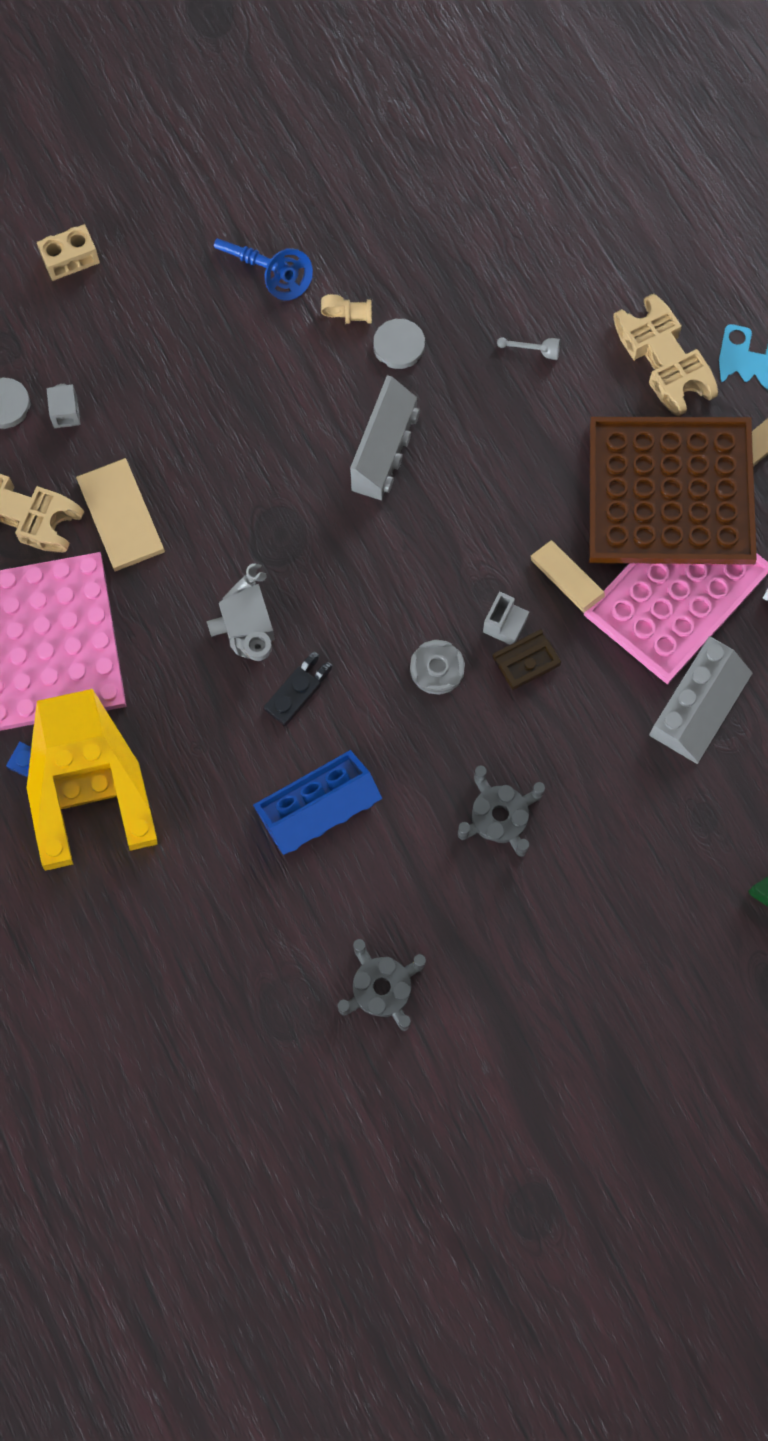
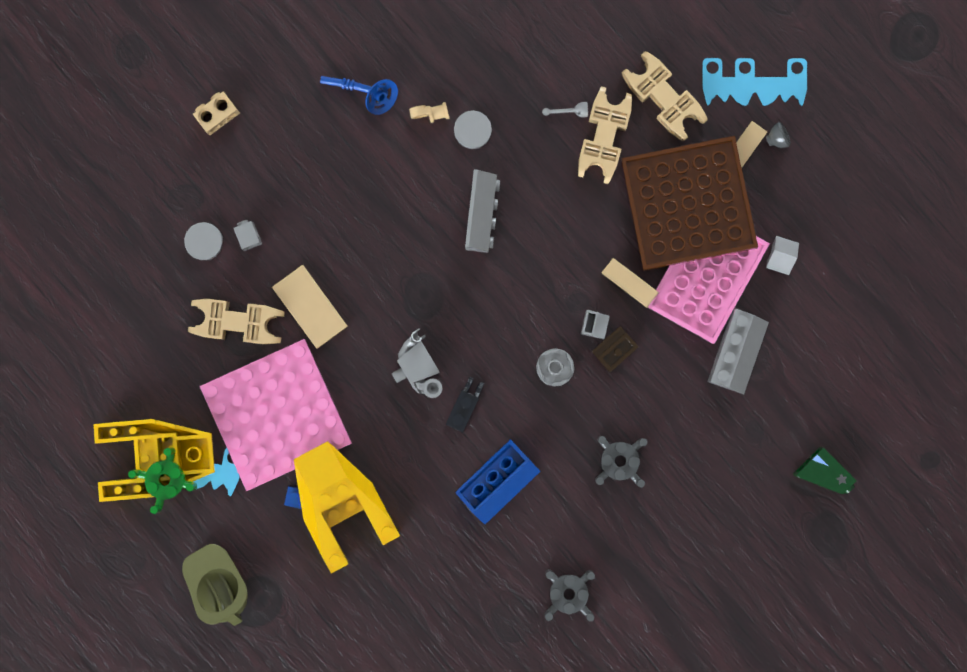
camera: 10 degrees left, 15 degrees up
(565, 402) = (600, 150): none -> tan piece

